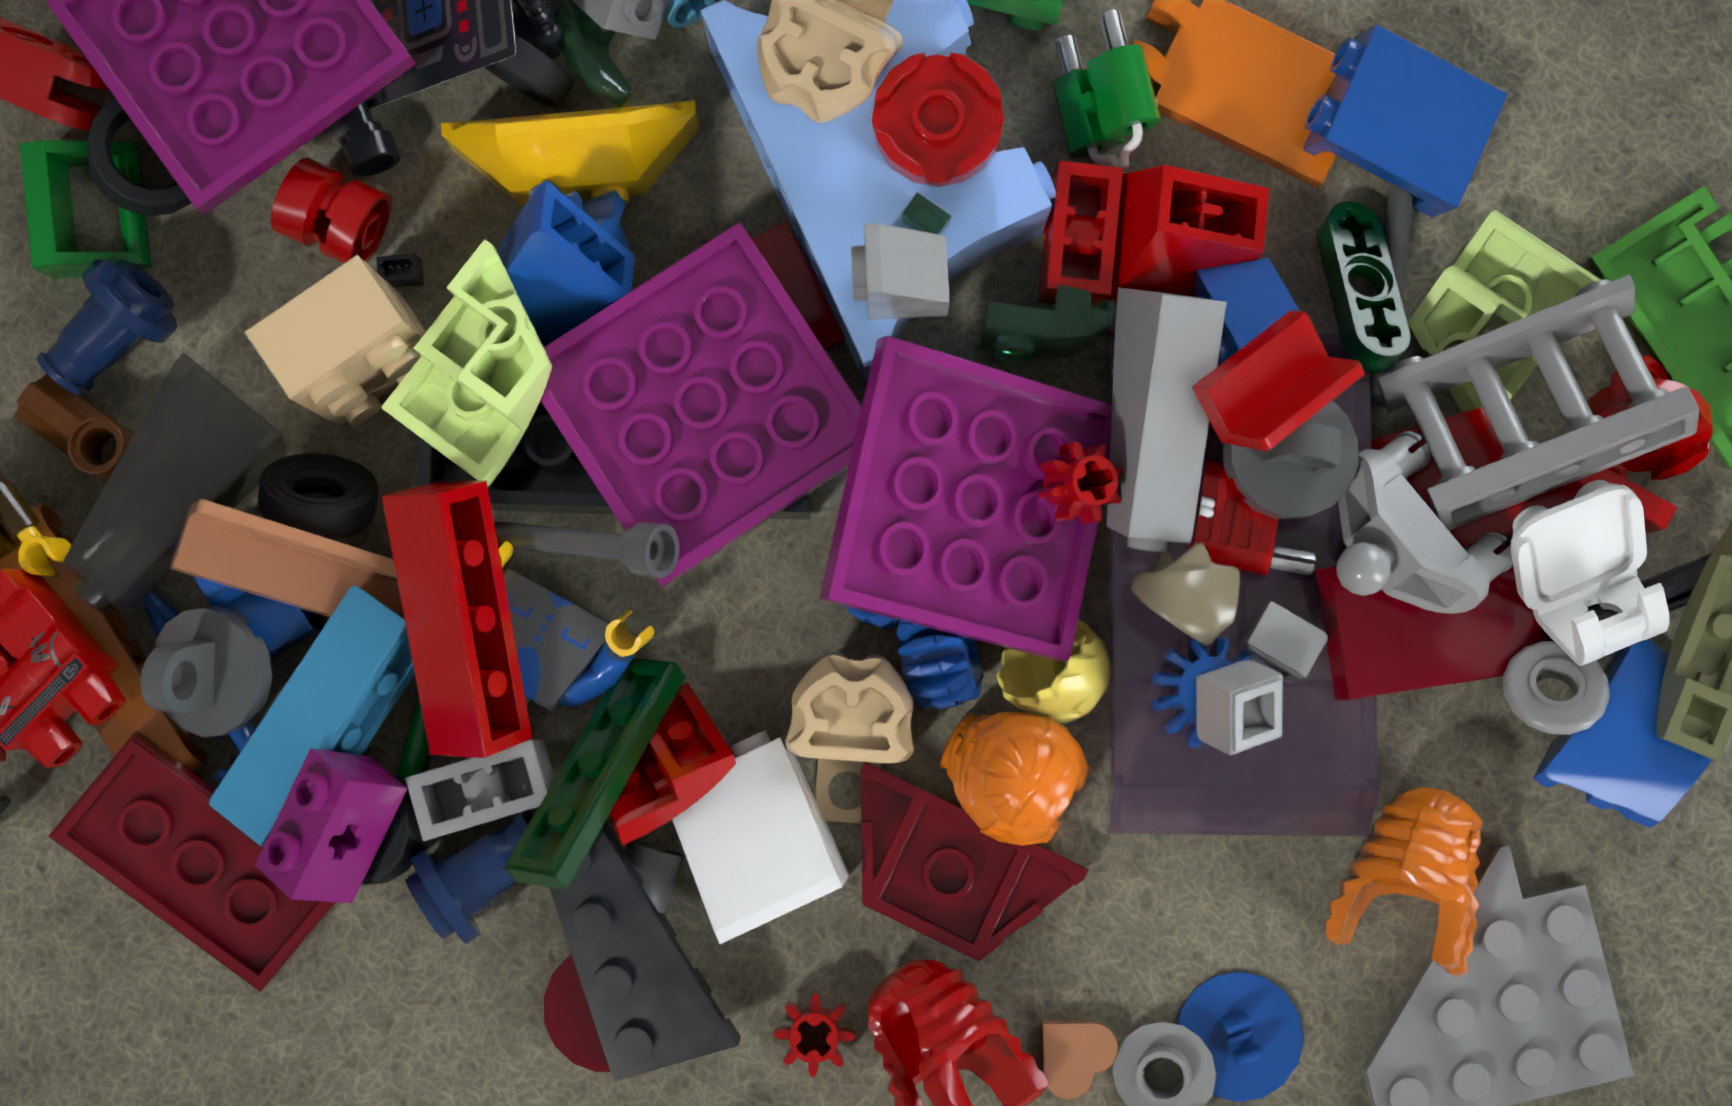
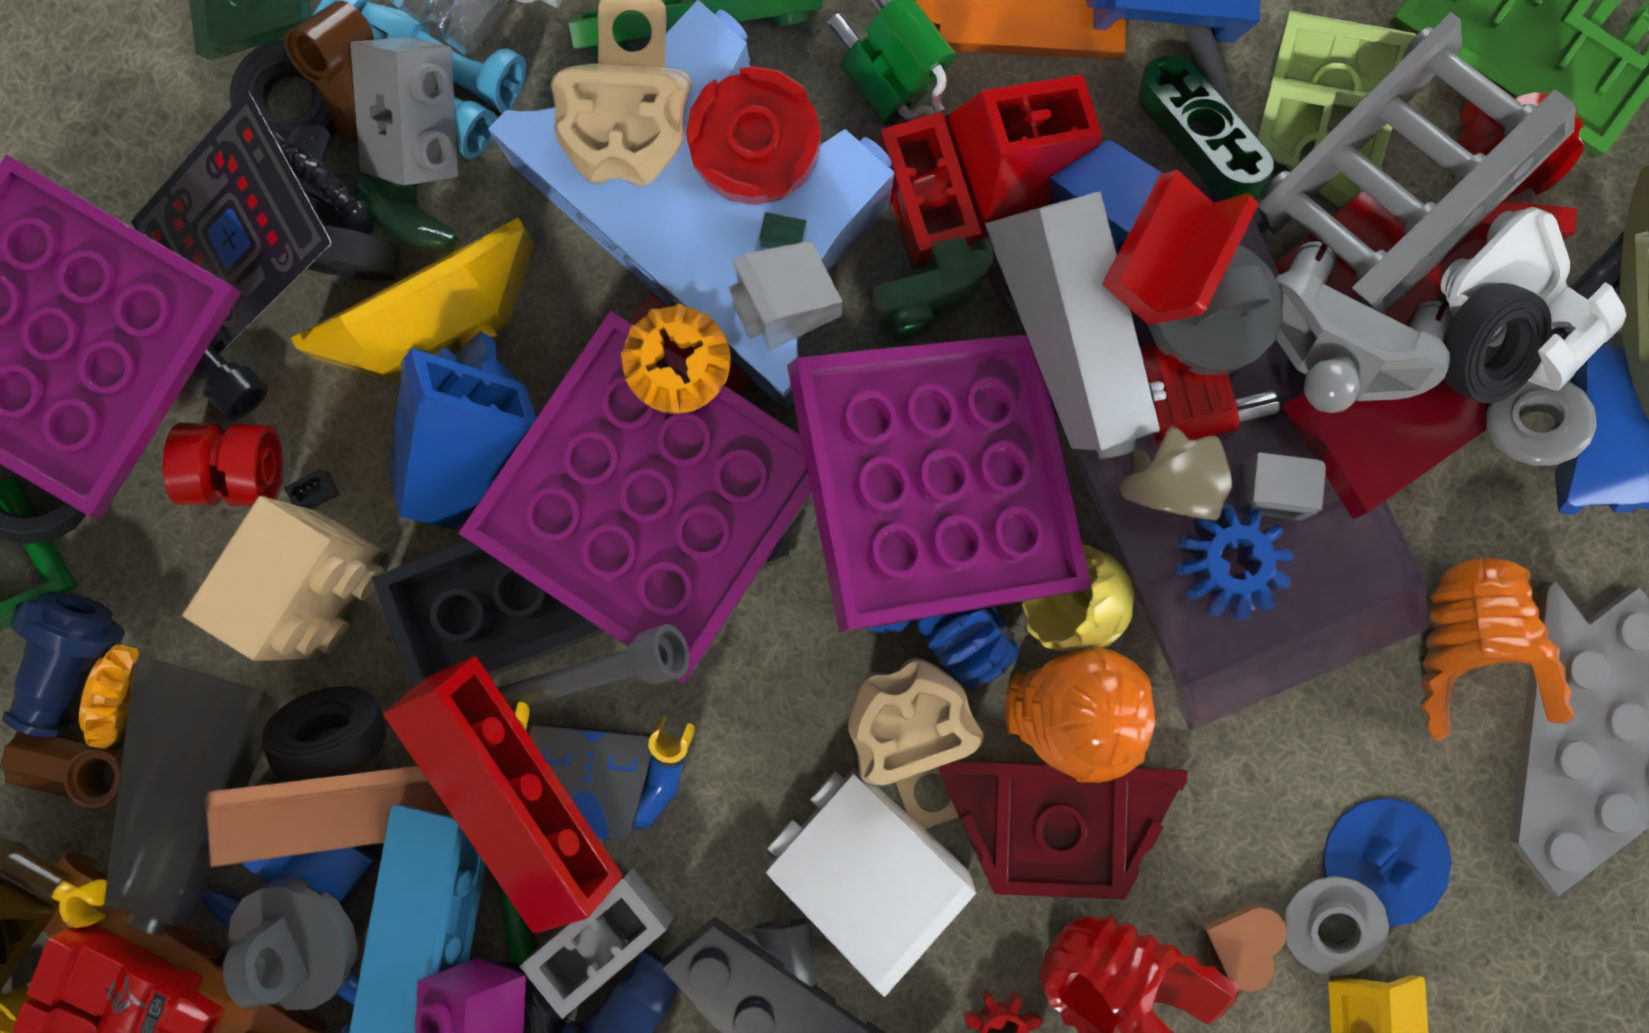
camera: 25 degrees left, 0 degrees up
(140, 379) = (107, 697): none -> light orange gear
(475, 372) = (422, 556): yellowish green slope -> none
(594, 775) = (696, 888): dark green tile -> none
(675, 770) = (749, 848): red slope -> none
(804, 309) = (663, 388): none -> light orange gear
(1098, 480) = (1033, 418): red gear -> none
(1239, 706) = (1275, 564): light grey slope -> none
(1524, 572) = (1517, 358): none -> black tyre

